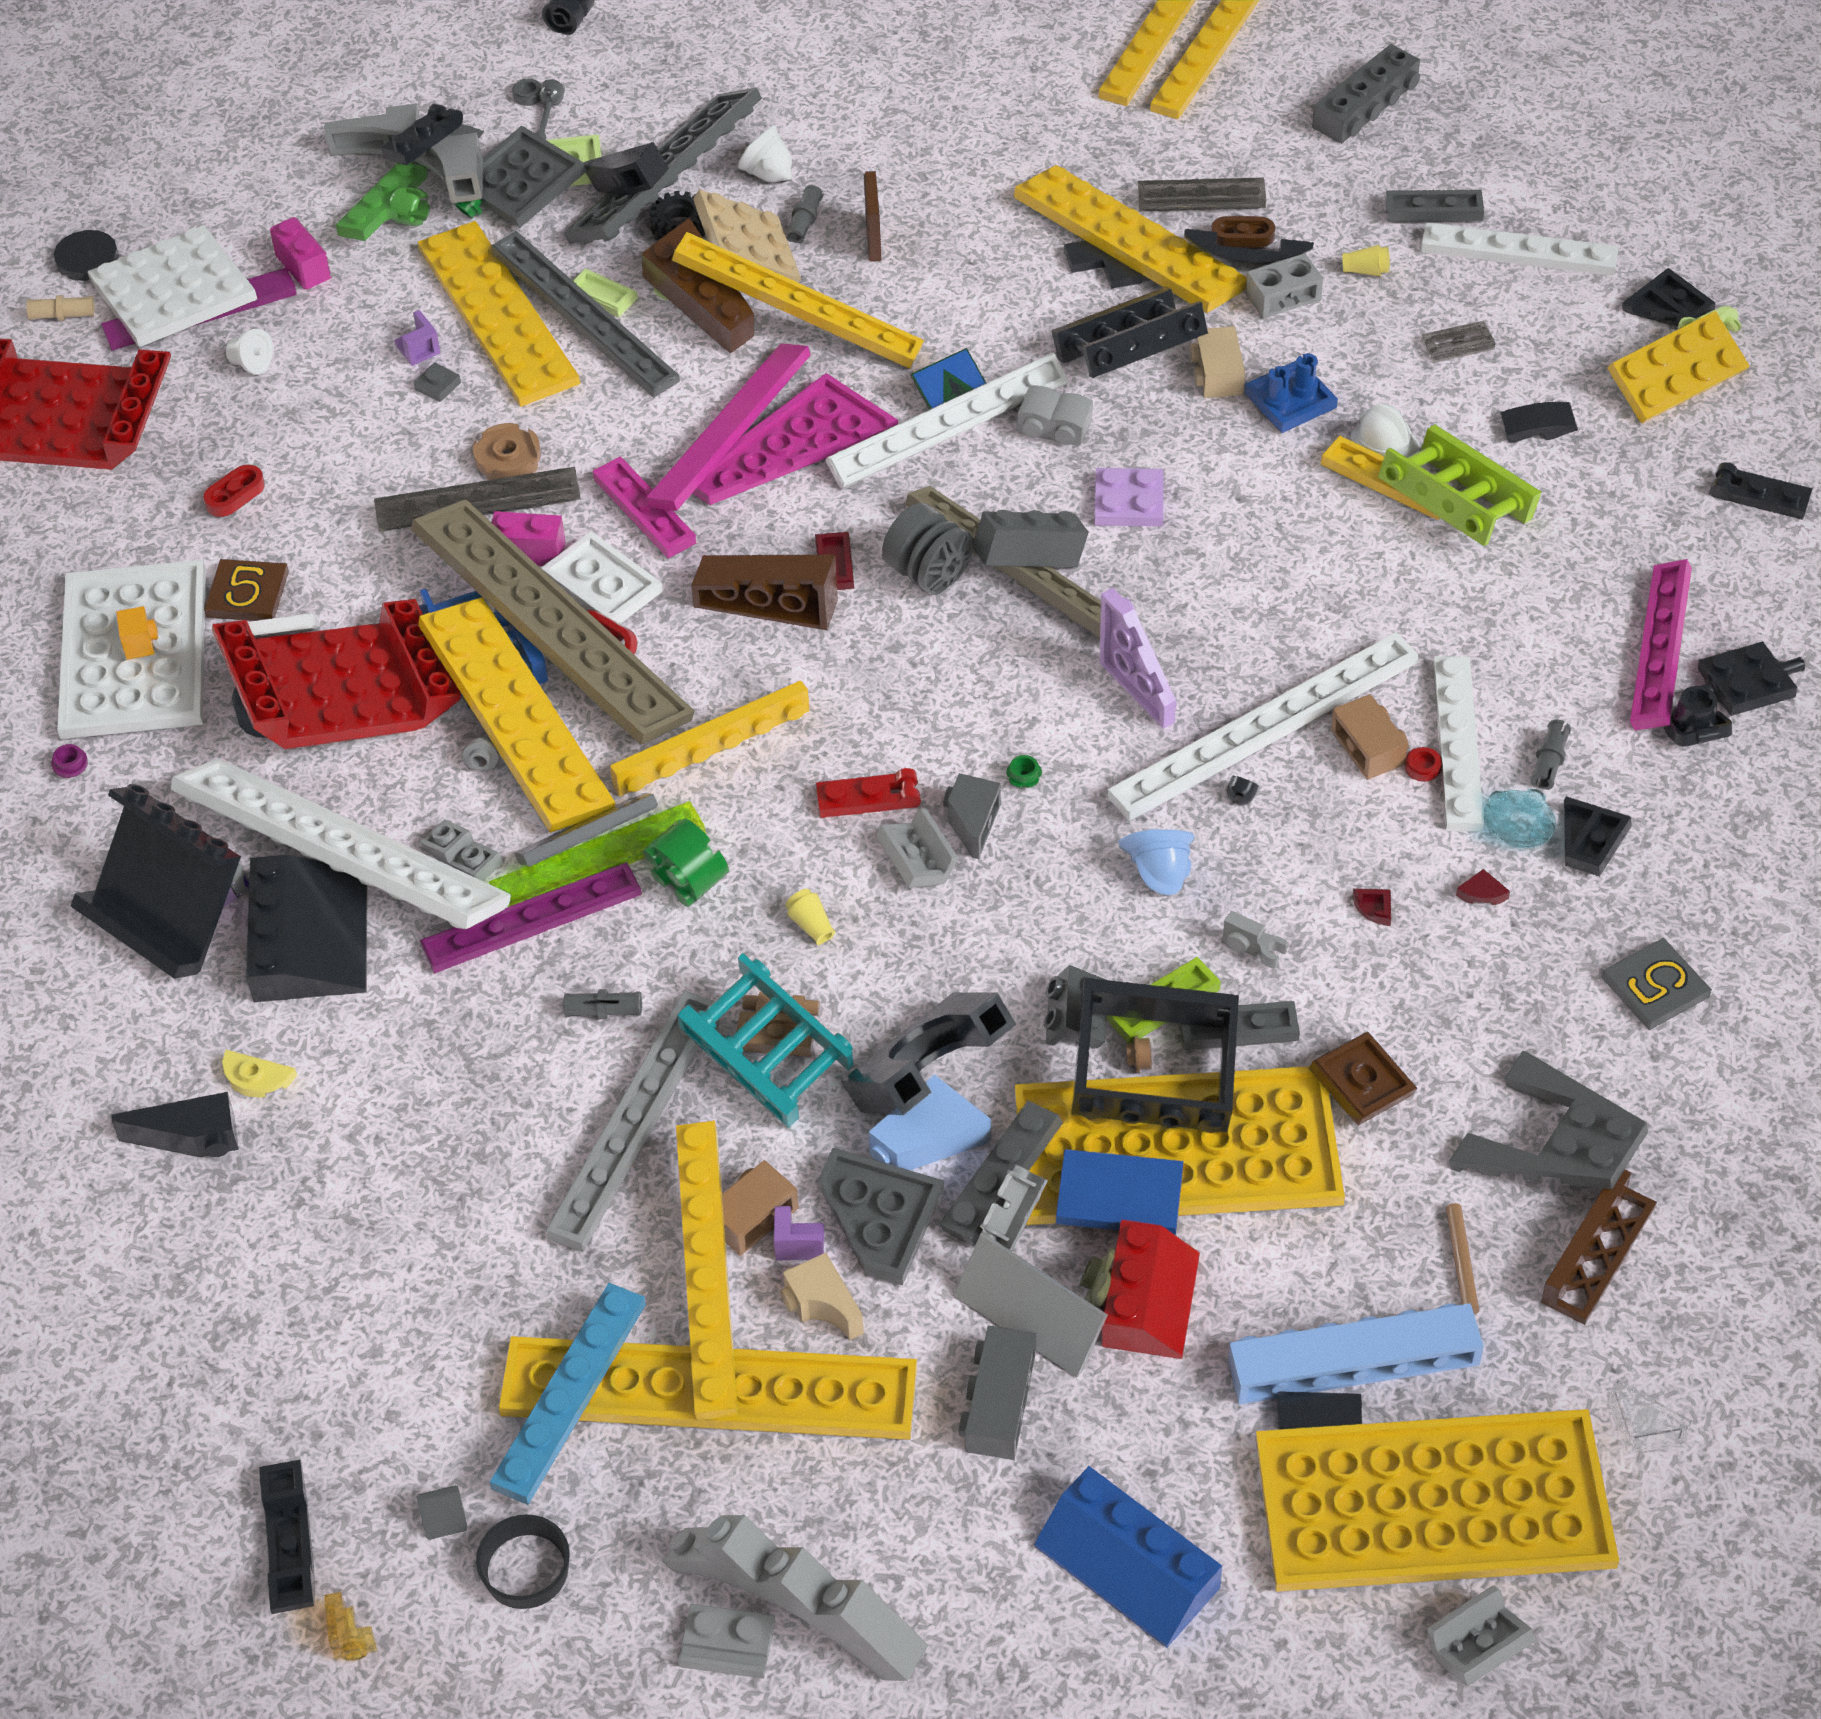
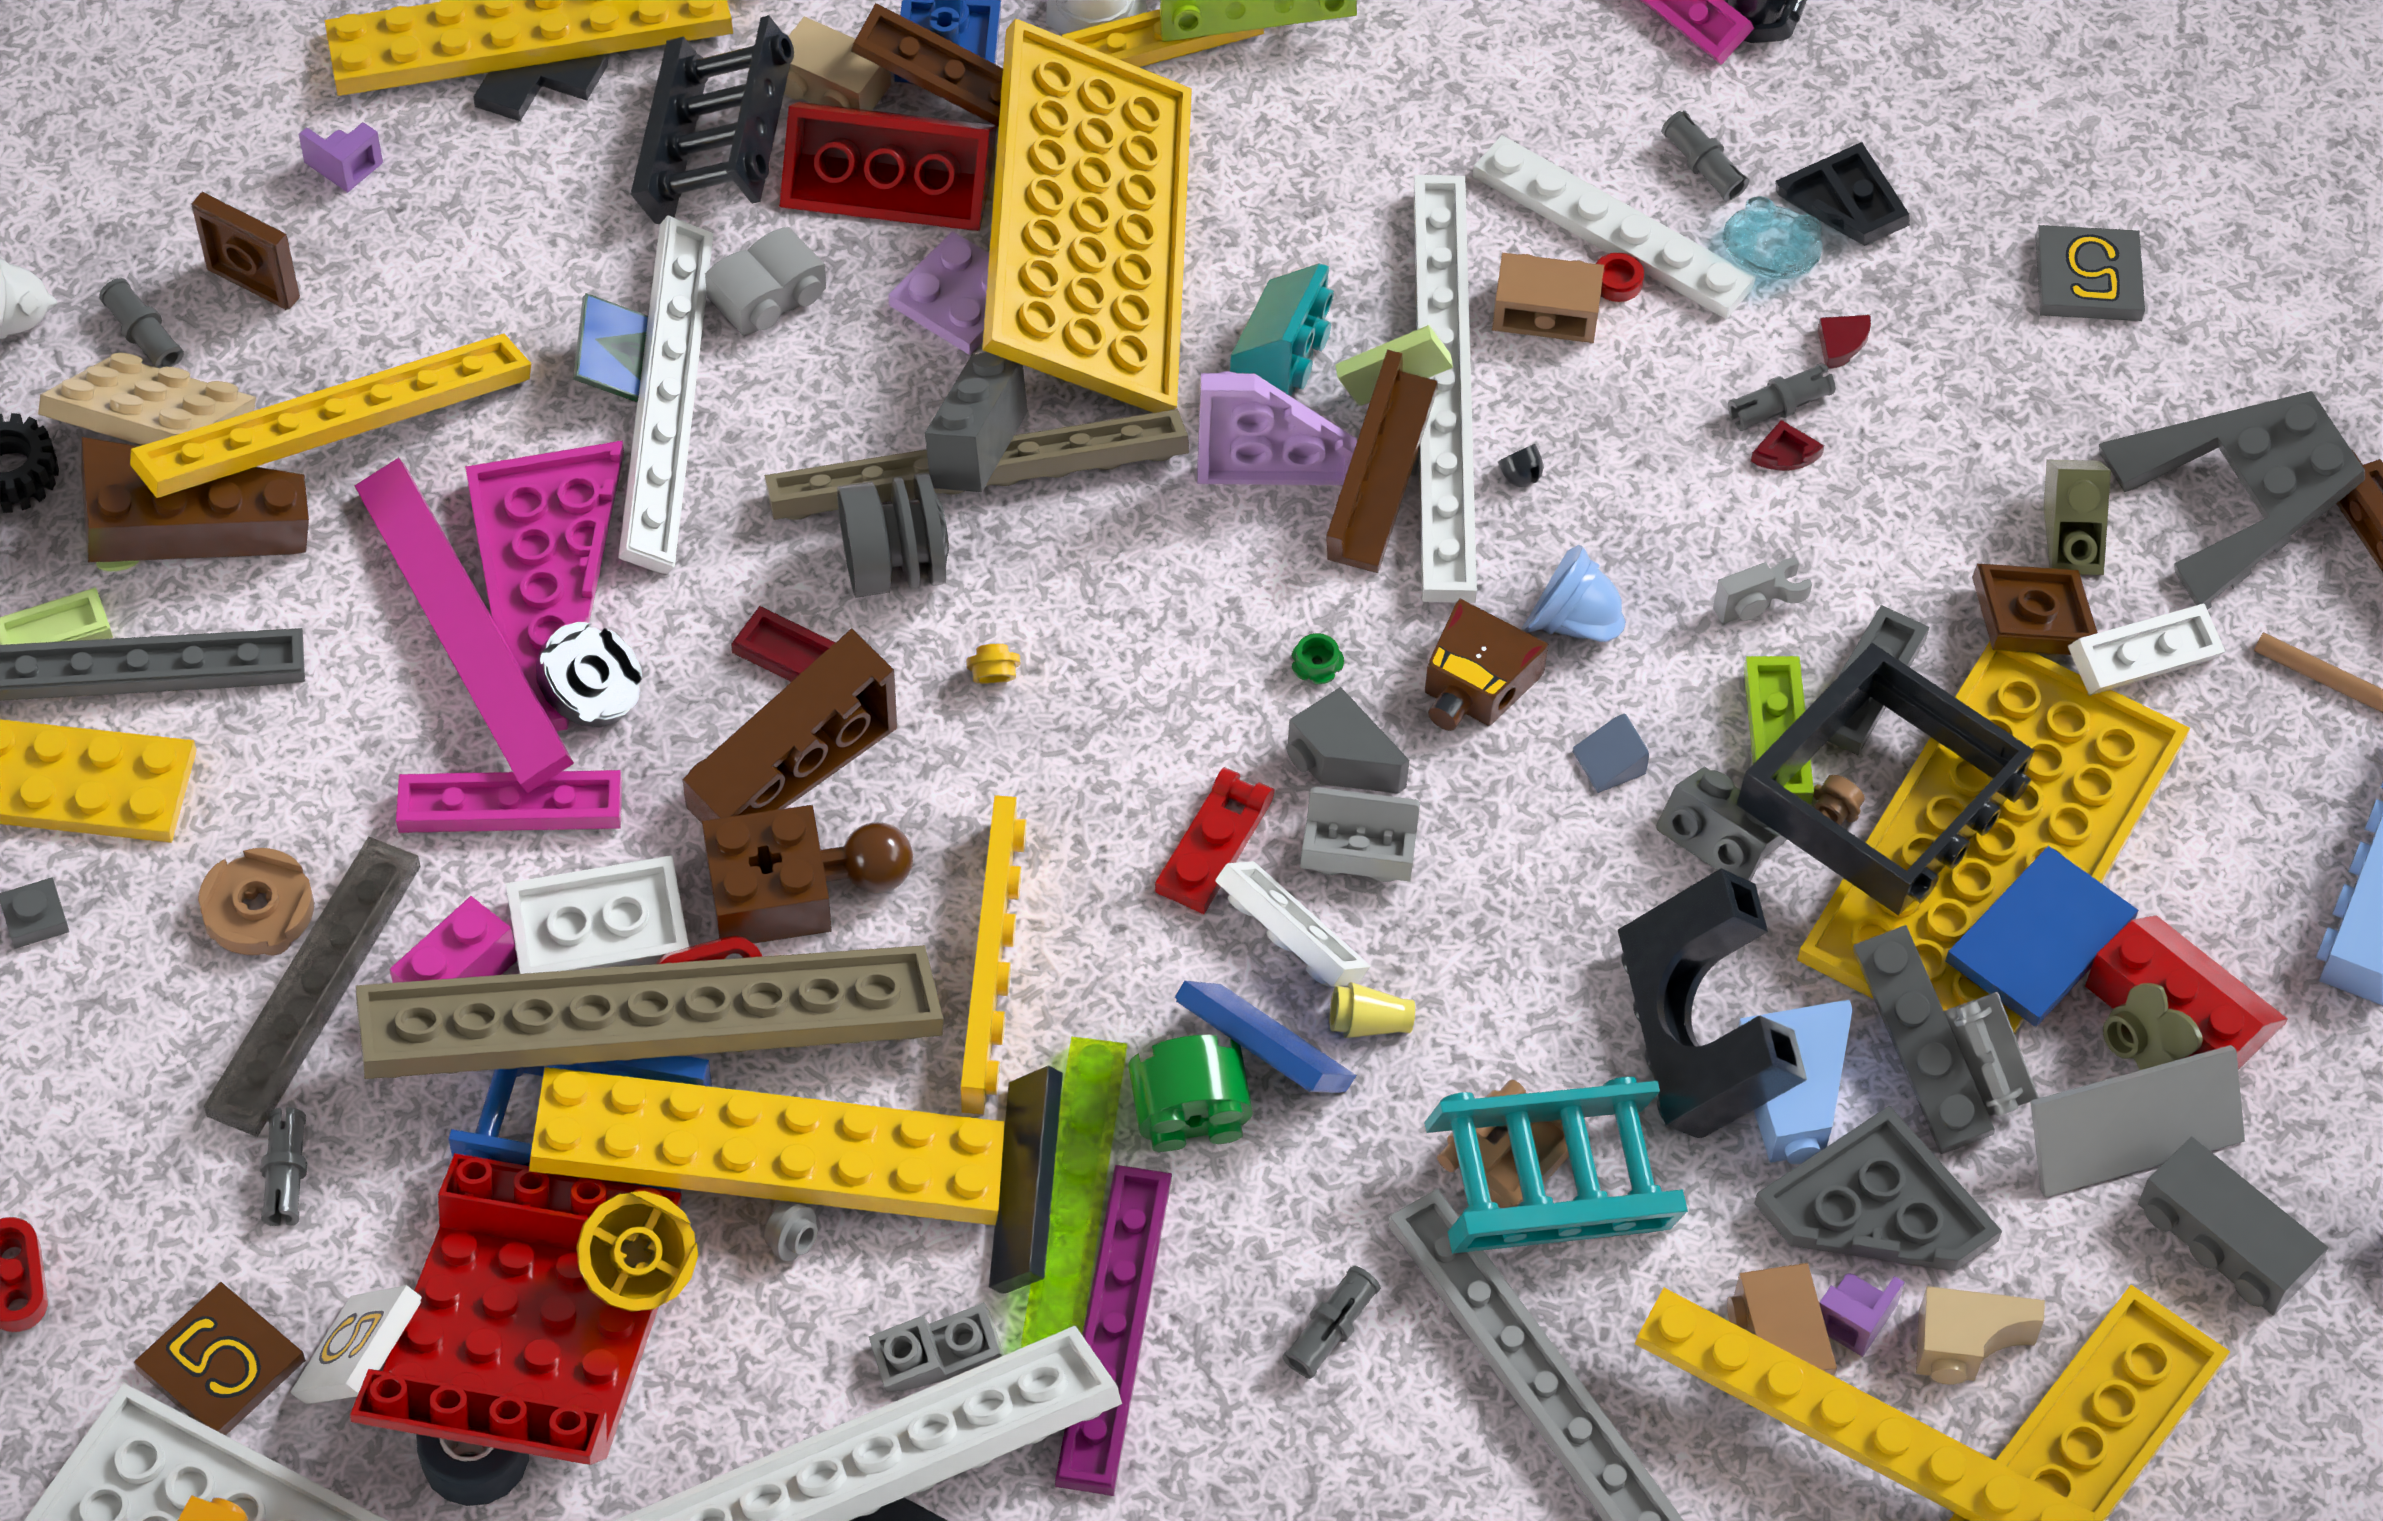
camera: 60 degrees left, 5 degrees up
(368, 549) = (283, 1167): none -> dark grey pin
(396, 684) = (637, 1251): none -> yellow cylinder
(684, 626) = (774, 876): none -> reddish brown brick
(741, 489) = (588, 674): none -> tile
(746, 873) = (1264, 1037): none -> blue tile
(837, 852) = (1291, 924): none -> white plate
(894, 640) = (993, 664): none -> yellow plate
(978, 223) = (343, 156): none -> medium lavender panel
(1078, 842) = (1480, 667): none -> reddish brown torso
(1079, 935) = (1613, 754): none -> sand blue slope
(1170, 724) = (1380, 466): none -> reddish brown fence
(1179, 418) = (887, 166): none -> red slope
(1213, 507) = (1088, 219): none -> yellow plate
(1221, 637) = (1286, 329): none -> teal slope
(1244, 691) = (1421, 354): none -> yellowish green tile
(1250, 401) = (931, 62): none -> reddish brown fence
(1381, 1144) = (2146, 649): none -> white plate
(1406, 880) = (1781, 396): none -> dark grey pin
(1454, 1062) = (2076, 514): none -> olive slope

